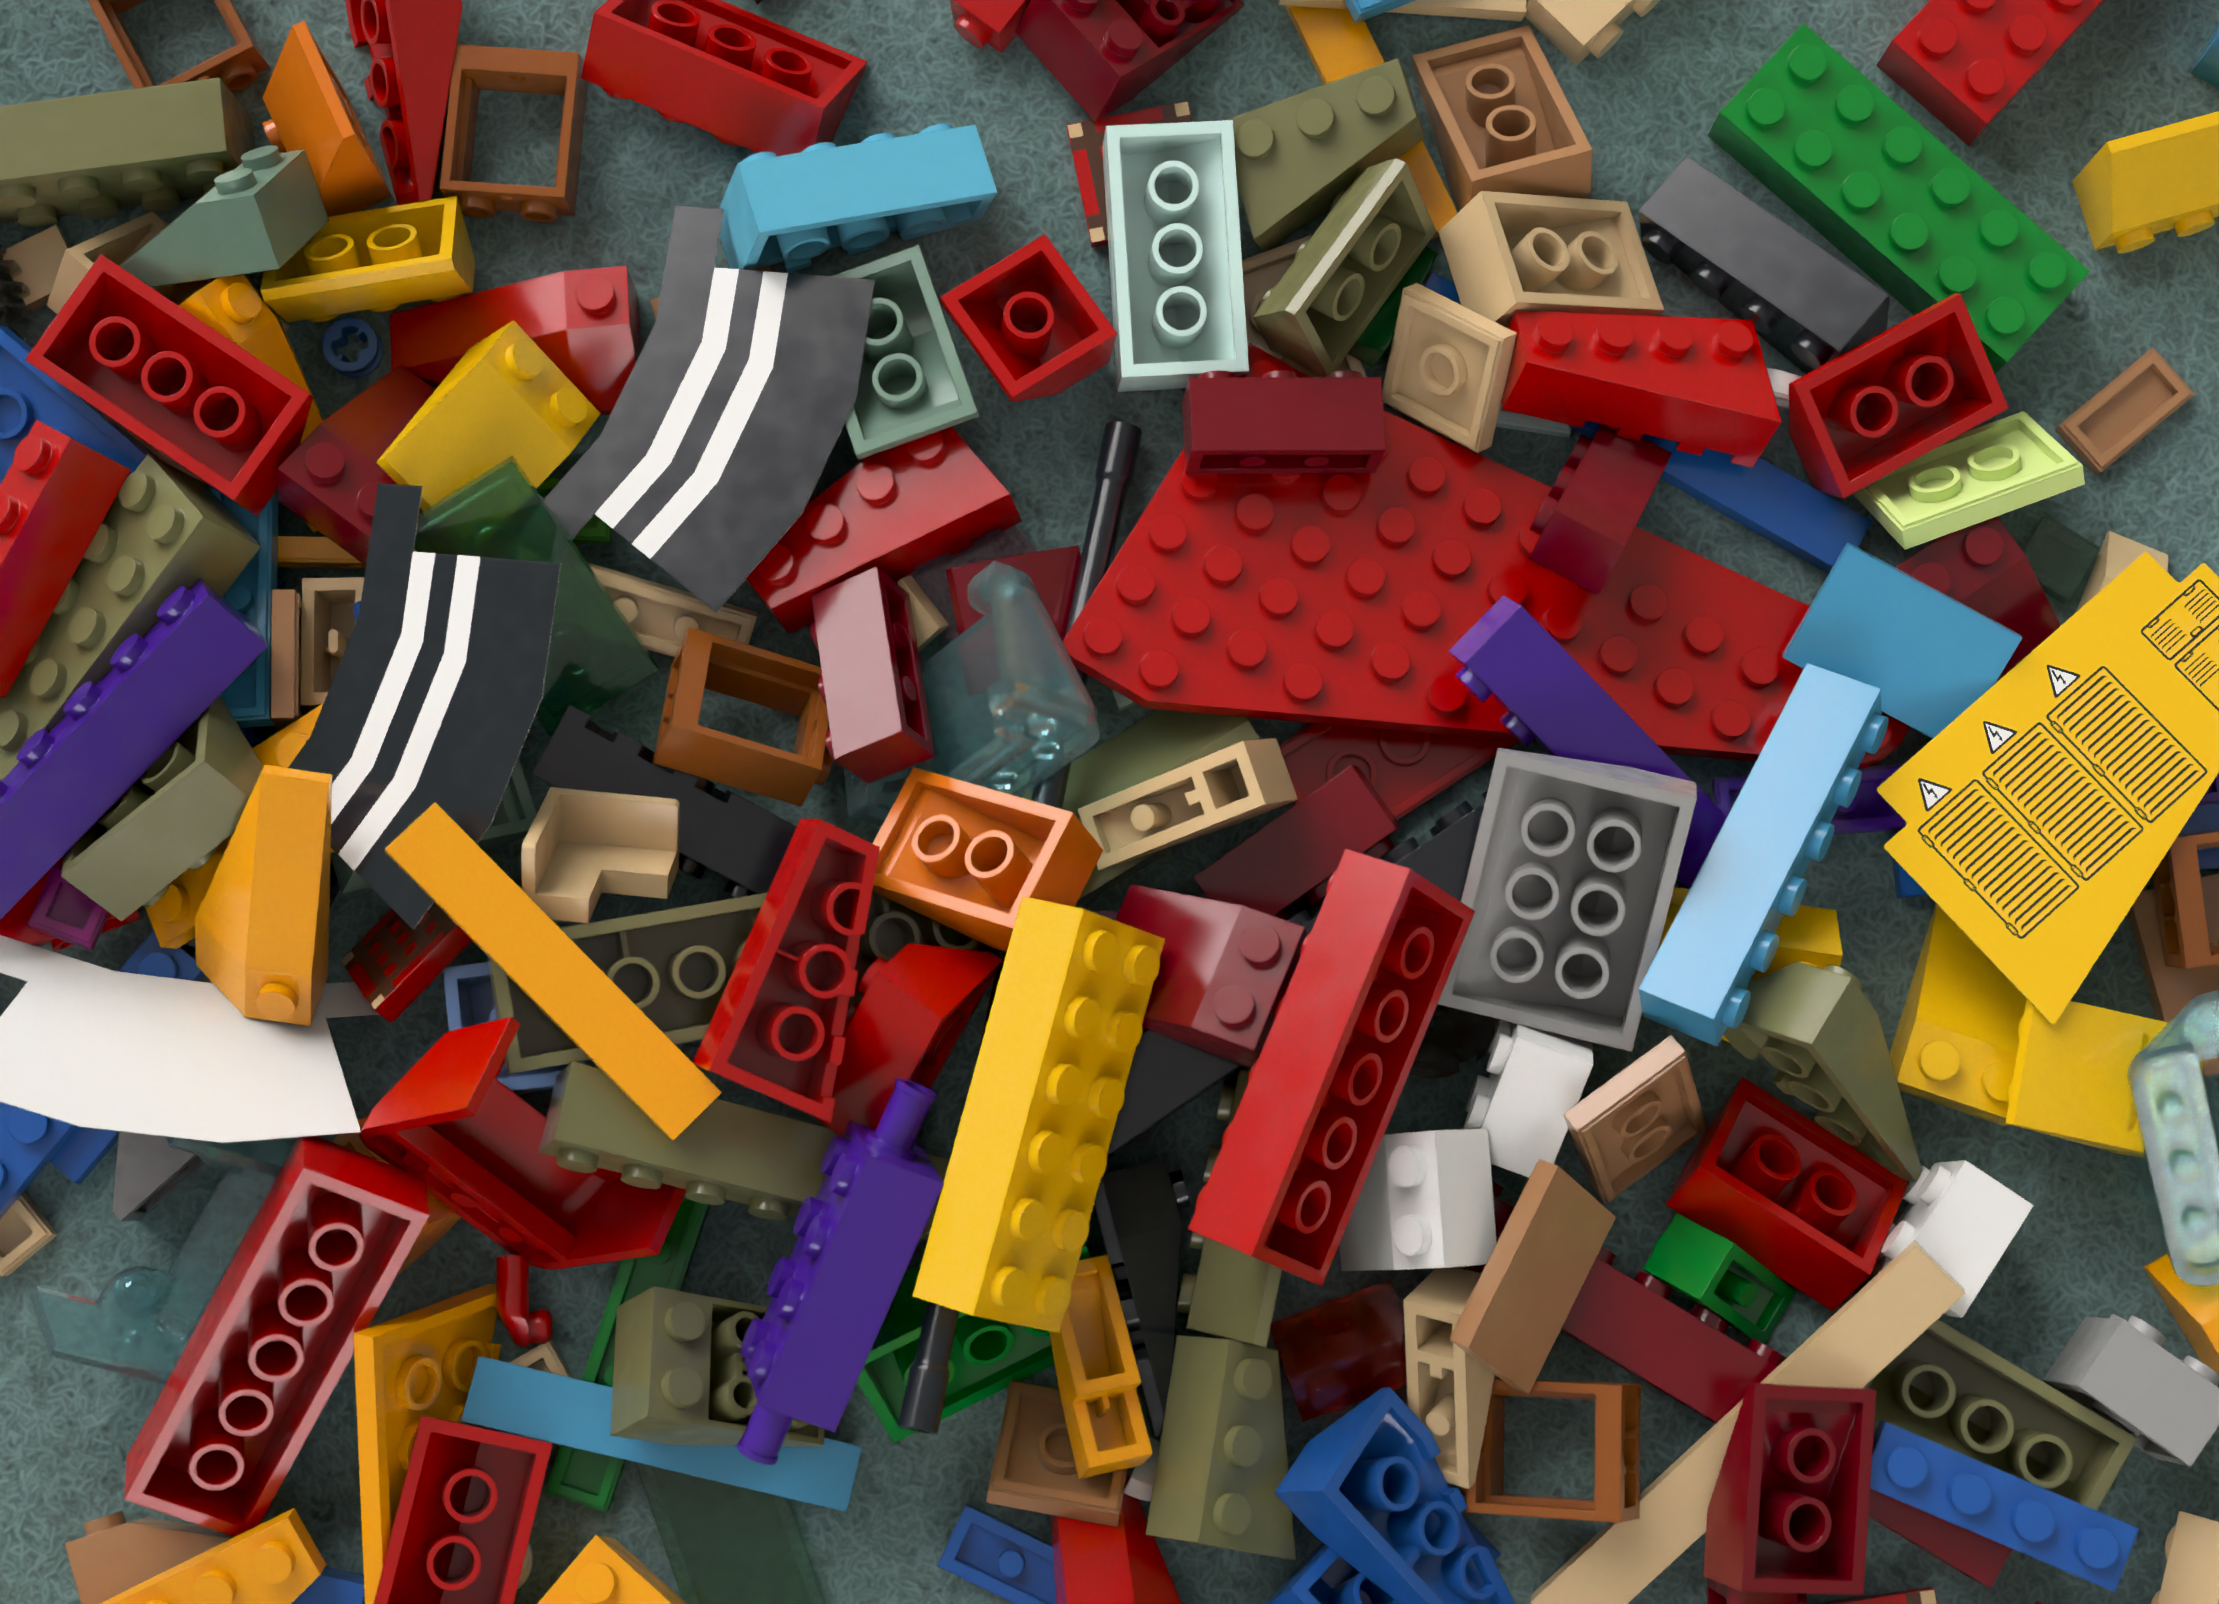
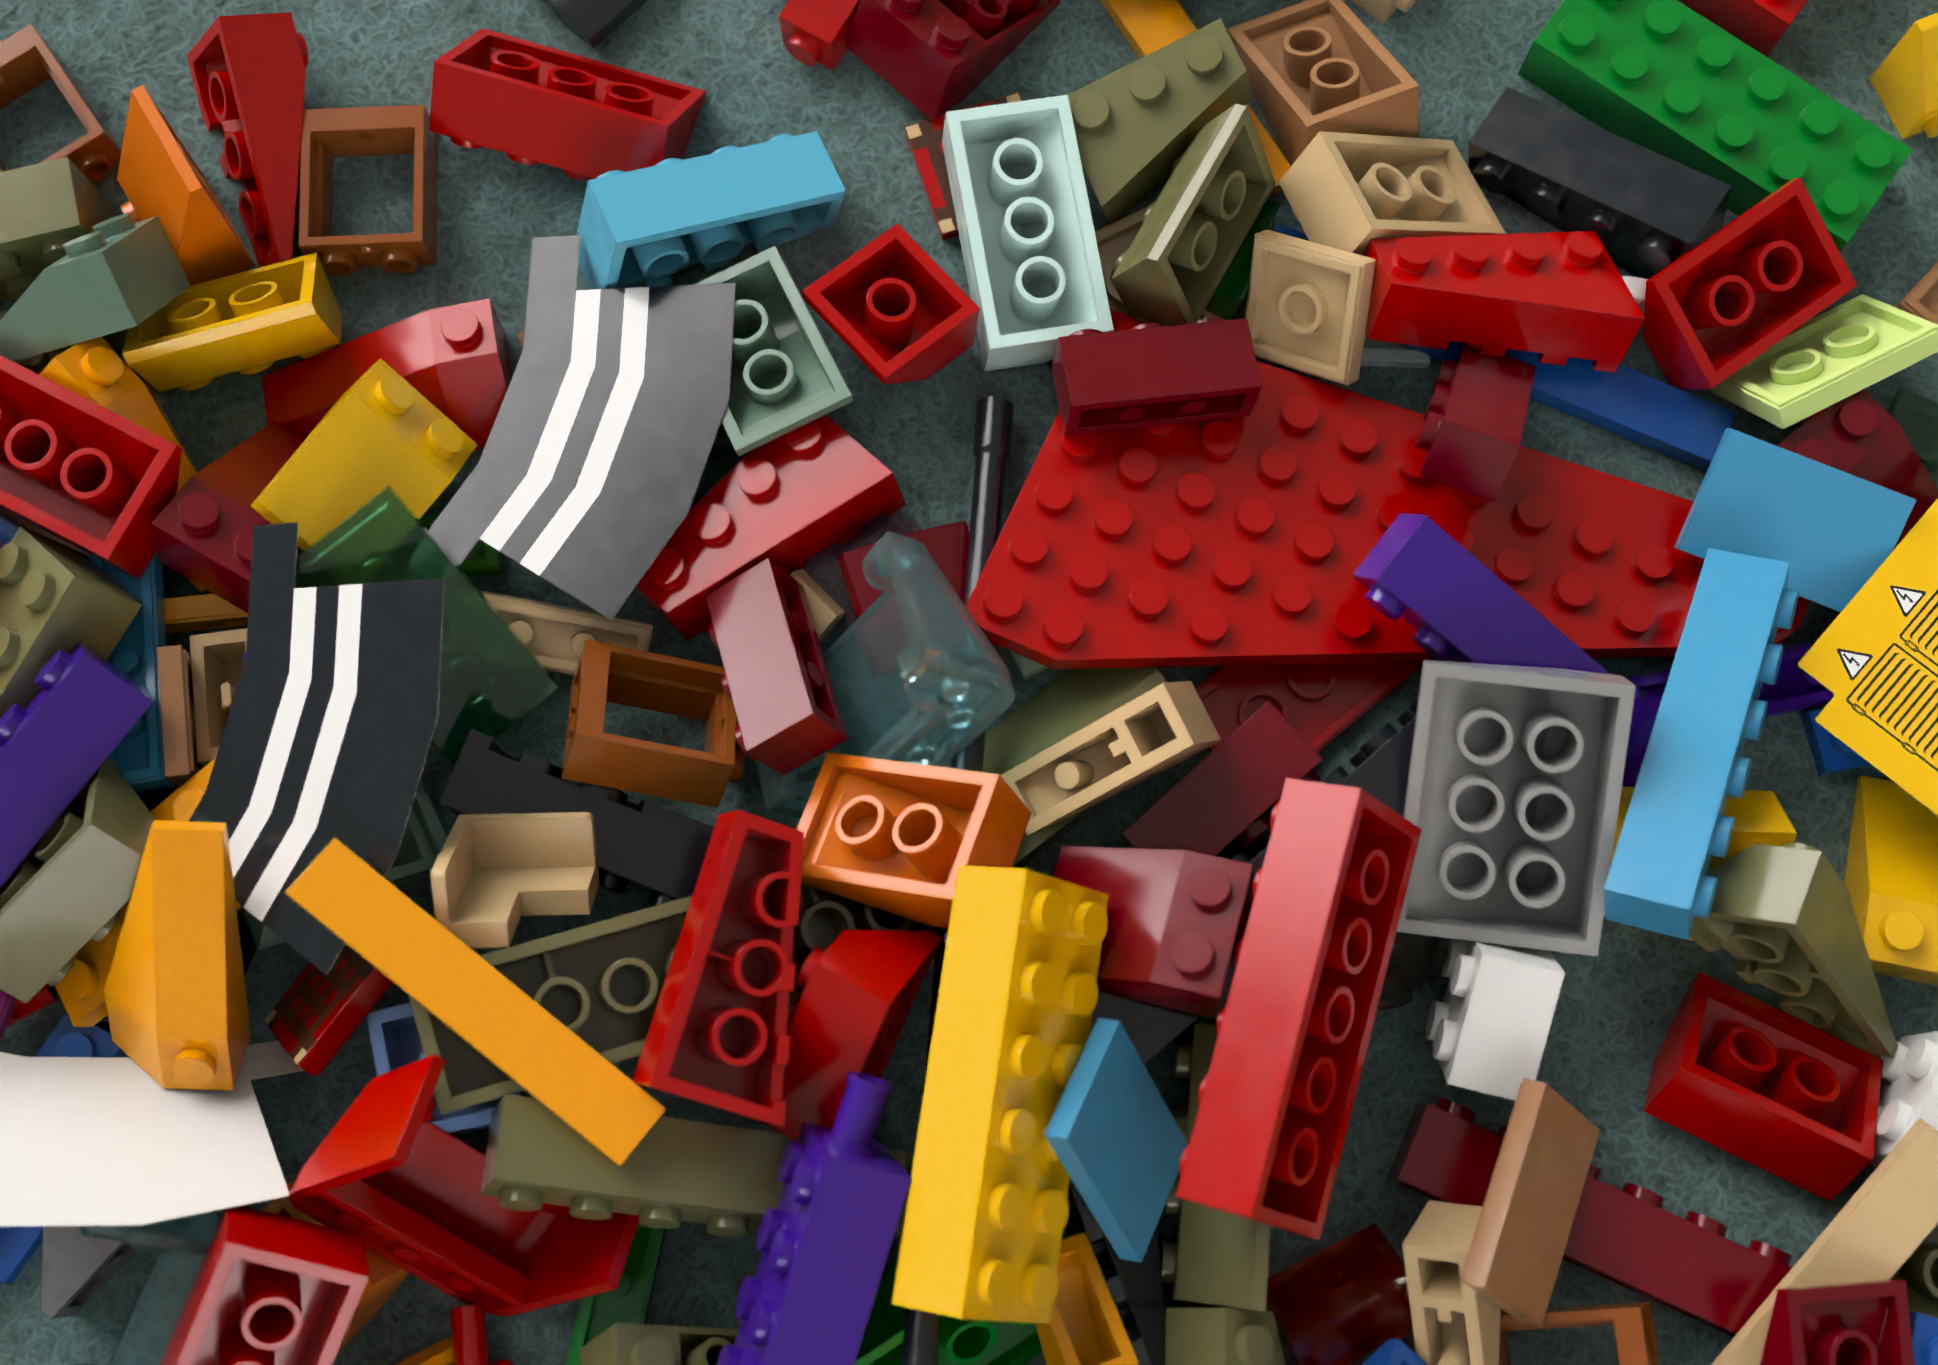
camera: 10 degrees left, 5 degrees down
(337, 337) = (211, 403): blue bush -> none
(1144, 1170) = (1117, 1139): none -> dark azure tile
(1424, 1204) = (1411, 1141): white slope -> none
(1636, 1119) = (1608, 1025): medium nougat tile -> none
(1719, 1278) = (1708, 1179): green slope -> none

